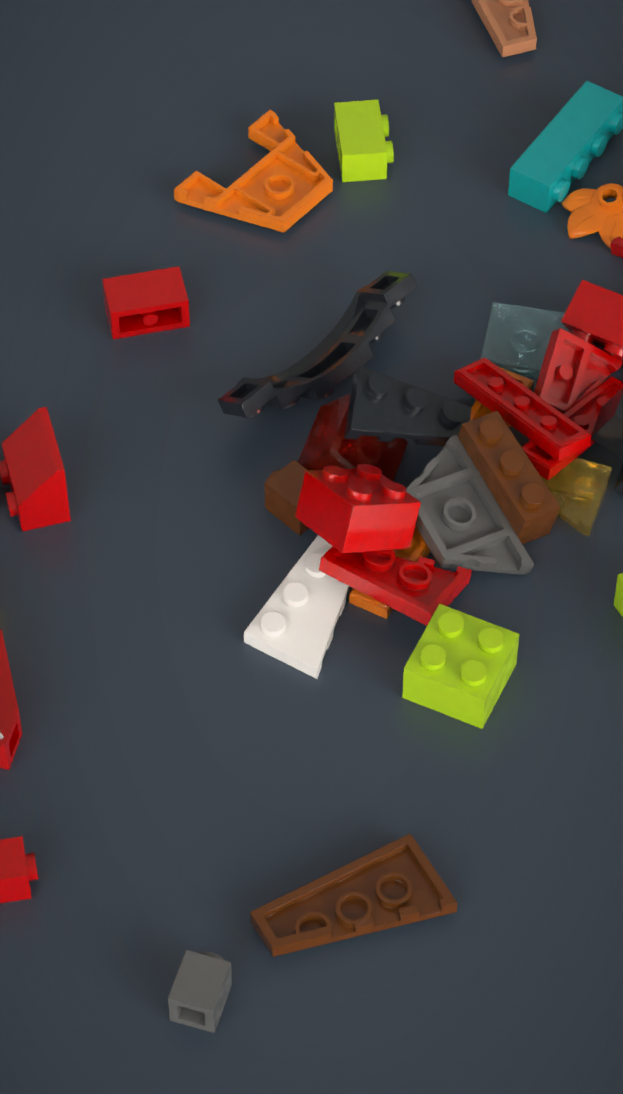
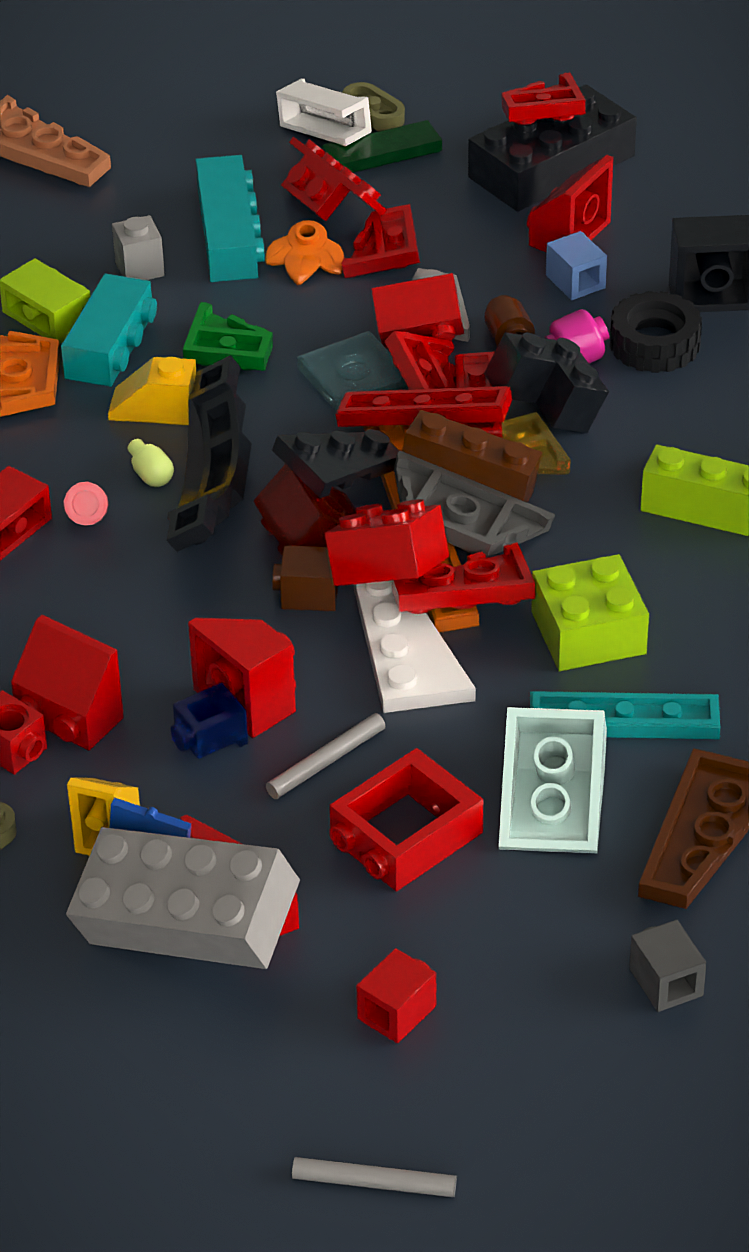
camera: 40 degrees left, 10 degrees down
(105, 566) = (209, 721): none -> clear blue brick
(151, 771) = (417, 775): none -> red window
(159, 546) = (250, 662): none -> red slope
(163, 648) = (325, 756): none -> light grey bar
(212, 331) = (86, 503): none -> coral tile
(282, 786) = (552, 780): none -> light aqua slope
(293, 326) = (150, 463): none -> yellowish green cylinder
(353, 266) = (155, 392): none -> yellow slope
(378, 192) = (108, 330): none -> teal brick
(405, 769) = (643, 713): none -> teal tile
(453, 255) = (216, 338): none -> green wing
(469, 135) = (138, 248): none -> light grey brick

